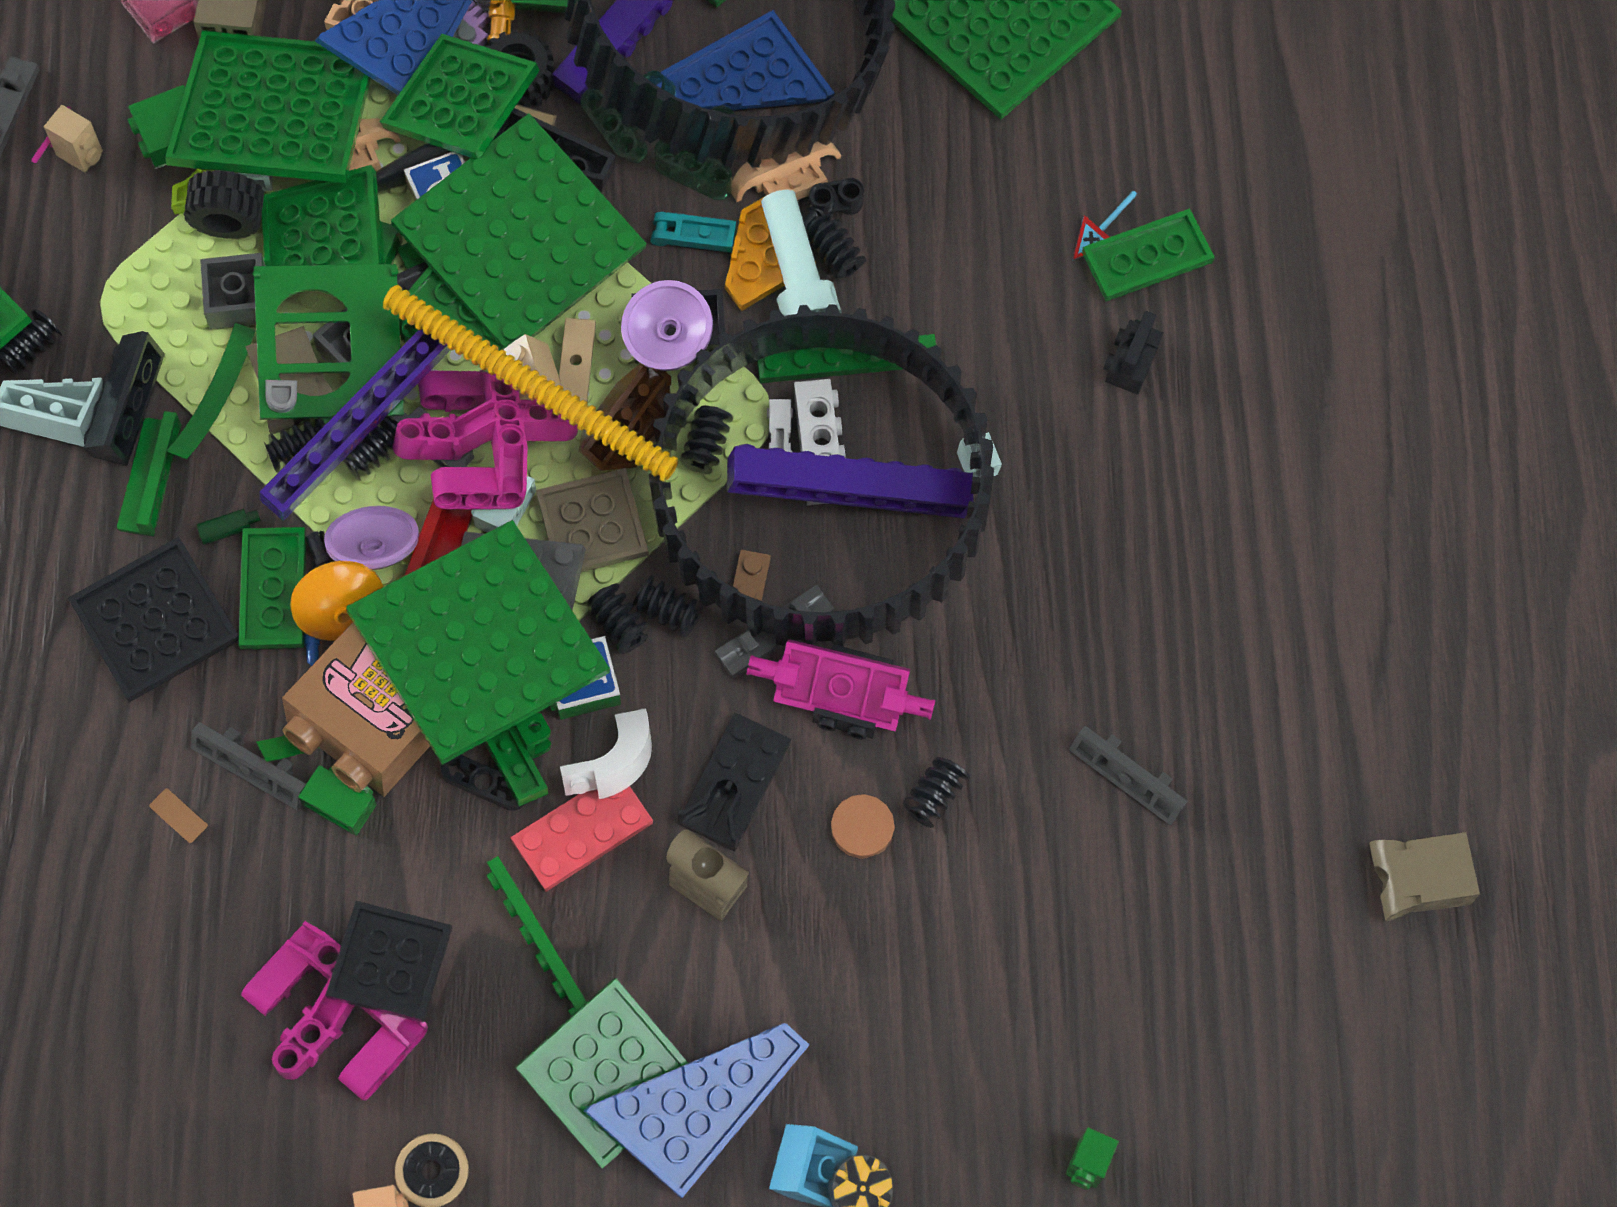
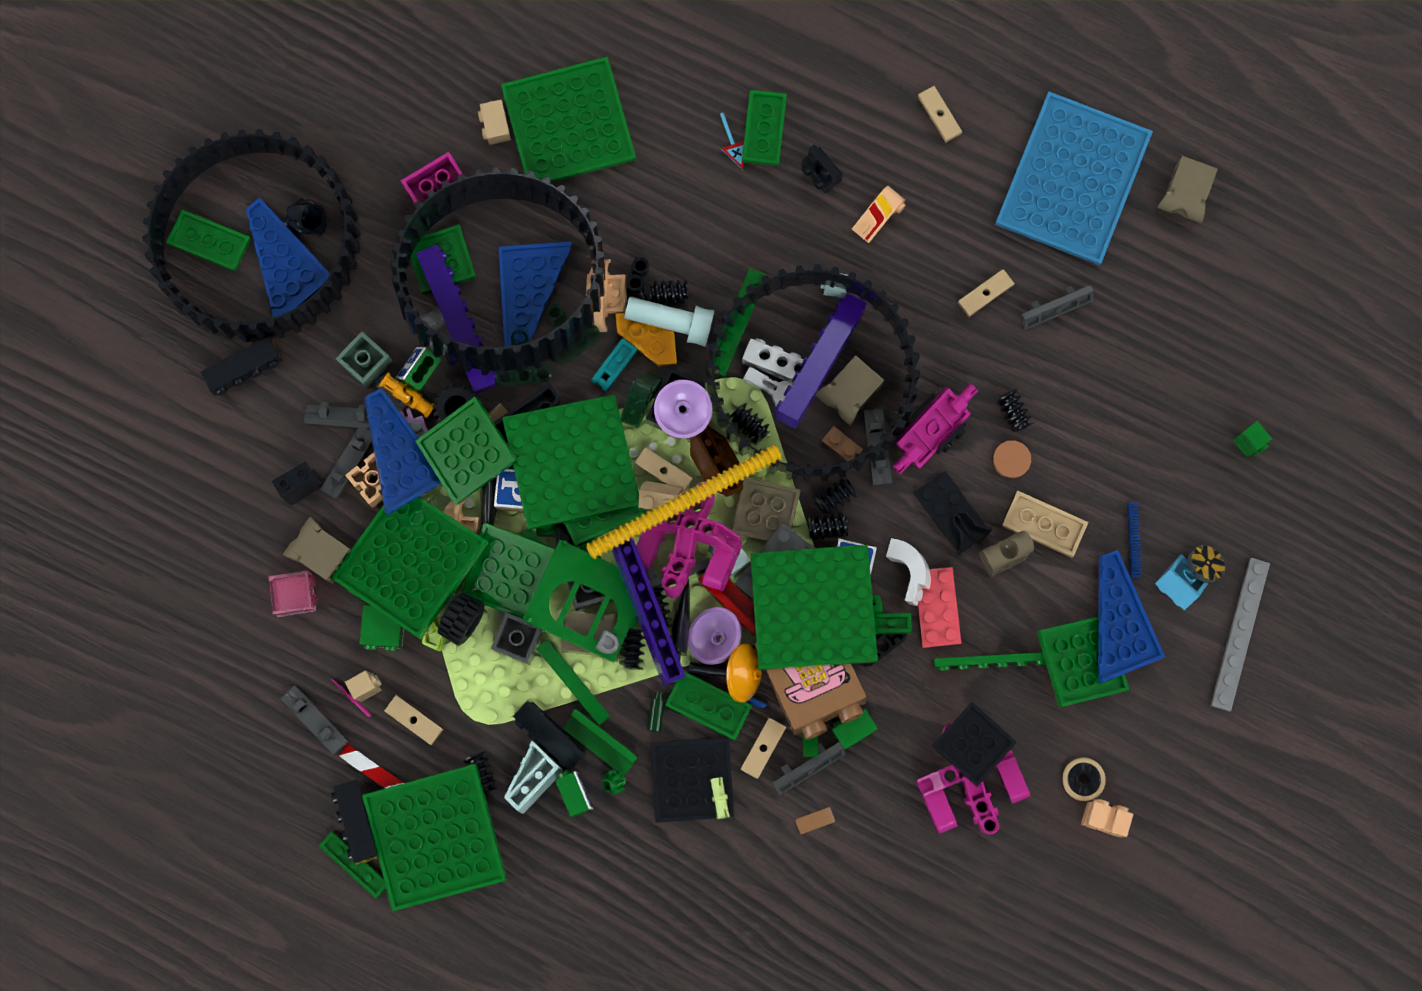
camera: 55 degrees left, 10 degrees up
(54, 469) = (573, 793): none -> green piece
(64, 213) = (404, 713): none -> tan tile
(98, 515) = (613, 782): none -> green gear
(142, 662) = (719, 798): none -> yellowish green pin
(229, 689) = (769, 737): none -> tan tile
(366, 492) = (681, 623): none -> black piece
(657, 264) = (639, 397): none -> clear green beam
(786, 1088) = (1133, 561): none -> blue piece
(790, 920) = (1045, 524): none -> tan plate
(835, 551) = (851, 389): none -> dark tan piece
(1107, 672) = (994, 287): none -> tan tile
(1136, 463) = (878, 213): none -> light nougat door
(1322, 460) = (935, 105): none -> tan tile
(1340, 705) = (1074, 178): none -> dark azure plate

